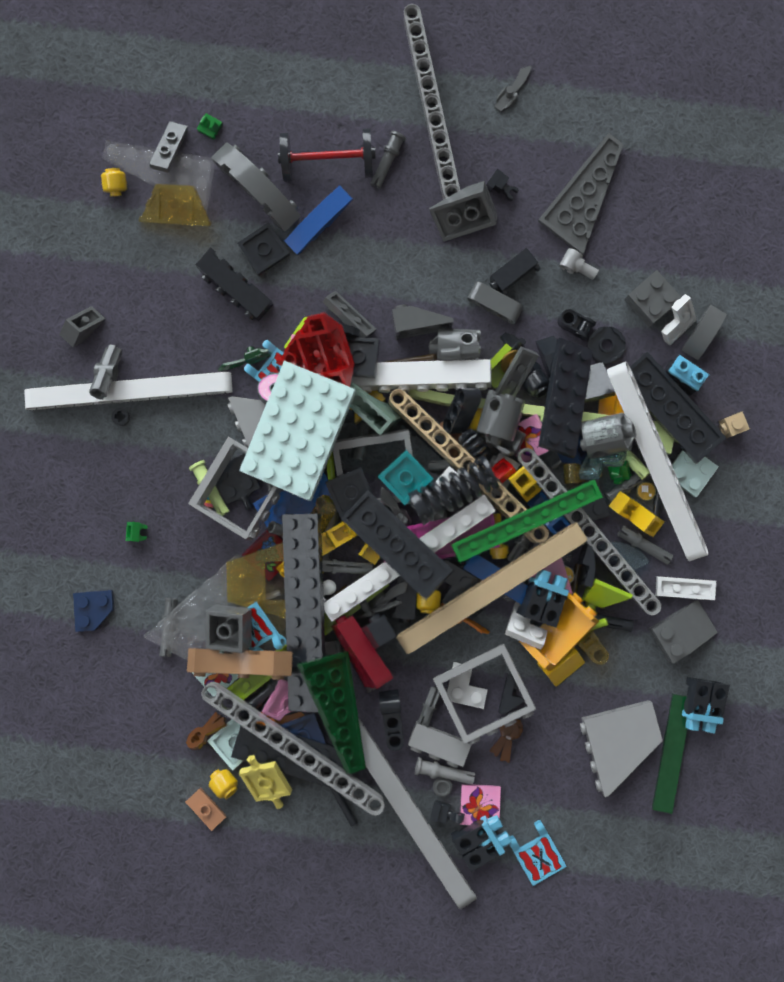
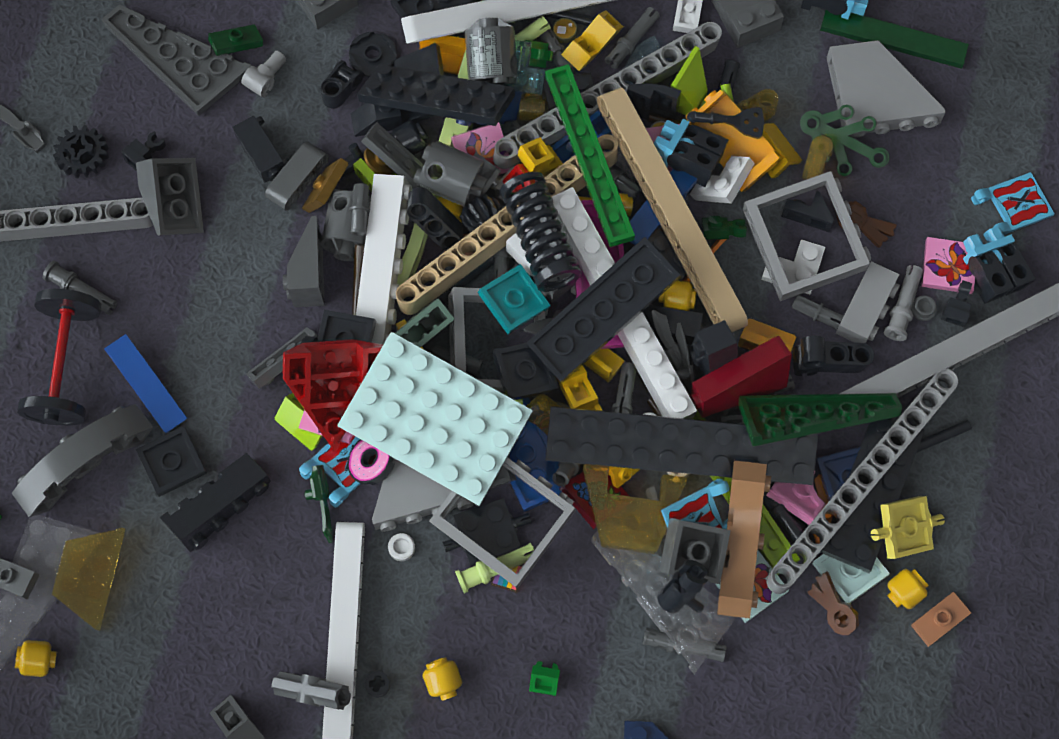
camera: 85 degrees left, 15 degrees down
(127, 460) = (442, 678): none -> yellow head
(195, 622) = (683, 588): none -> black piece
(219, 420) = (401, 547): none -> white tile
(404, 670) = (758, 333): none -> light orange panel
(486, 325) = (325, 185): none -> pearl gold plate
(487, 139) = (88, 156): none -> black gear
(489, 626) = (720, 228): none -> dark green plate
(559, 699) = (819, 152): none -> clear yellow leg
(573, 633) = (736, 121): none -> black piece
(574, 716) = (840, 136): none -> dark green plant
(603, 238) = (235, 40): none -> dark green plate

